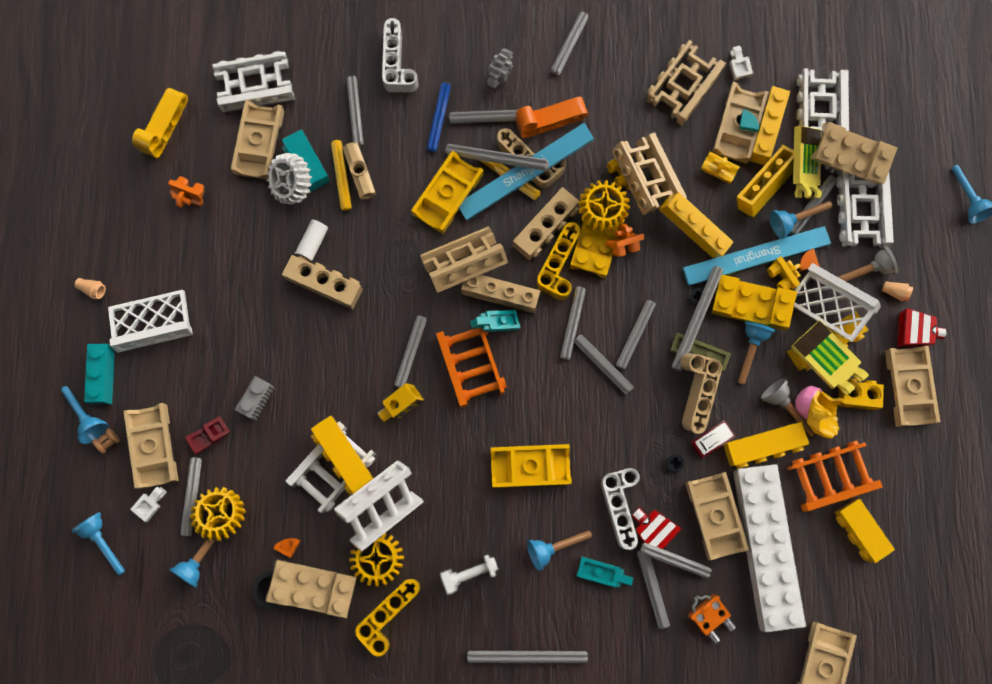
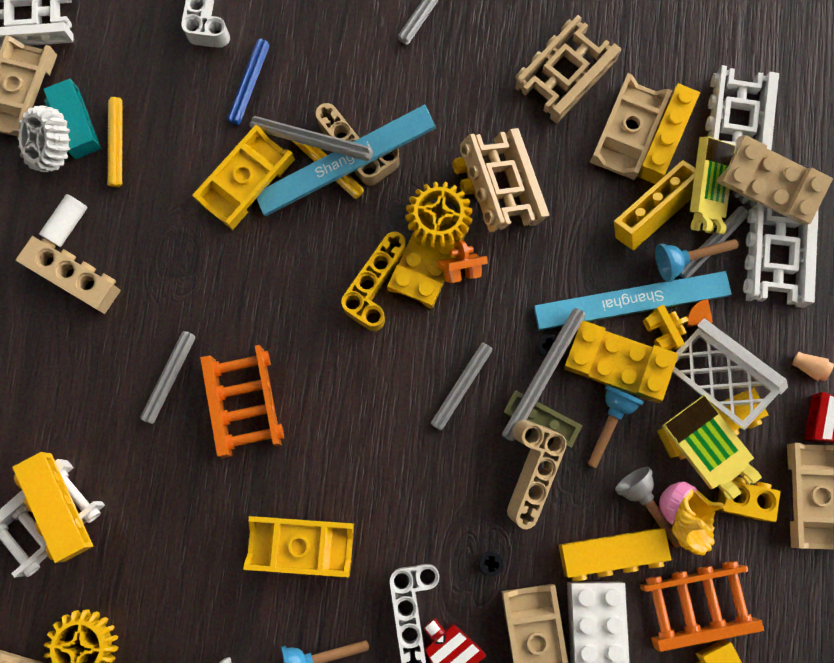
camera: 10 degrees right, 0 degrees up
(354, 110) = (144, 63): light grey axle -> none
(362, 180) = (135, 126): tan piece -> none
(369, 494) = (74, 563): white fence -> none
(407, 398) = (143, 442): yellow torso -> none
(482, 116) = (307, 86): light grey axle -> none
(482, 259) = (248, 265): tan fence -> none
(496, 321) = (281, 350): teal hinge -> none
(500, 68) = (331, 26): light grey gear -> none
(501, 293) = (292, 312): tan brick -> none
(550, 117) = (387, 95): orange beam -> none
(561, 200) = (386, 202): tan brick -> none
(572, 323) = (382, 362): light grey axle -> none
(605, 366) = (414, 421): light grey axle -> none
(696, 225) = (556, 252): yellow brick -> none
(713, 439) = (545, 537): white slope -> none
(720, 167) = (597, 181): yellow hips -> none
(740, 66) = (640, 54): white plate -> none
(748, 121) = (641, 126): teal tile -> none
(883, 262) = (798, 327): light grey piece -> none

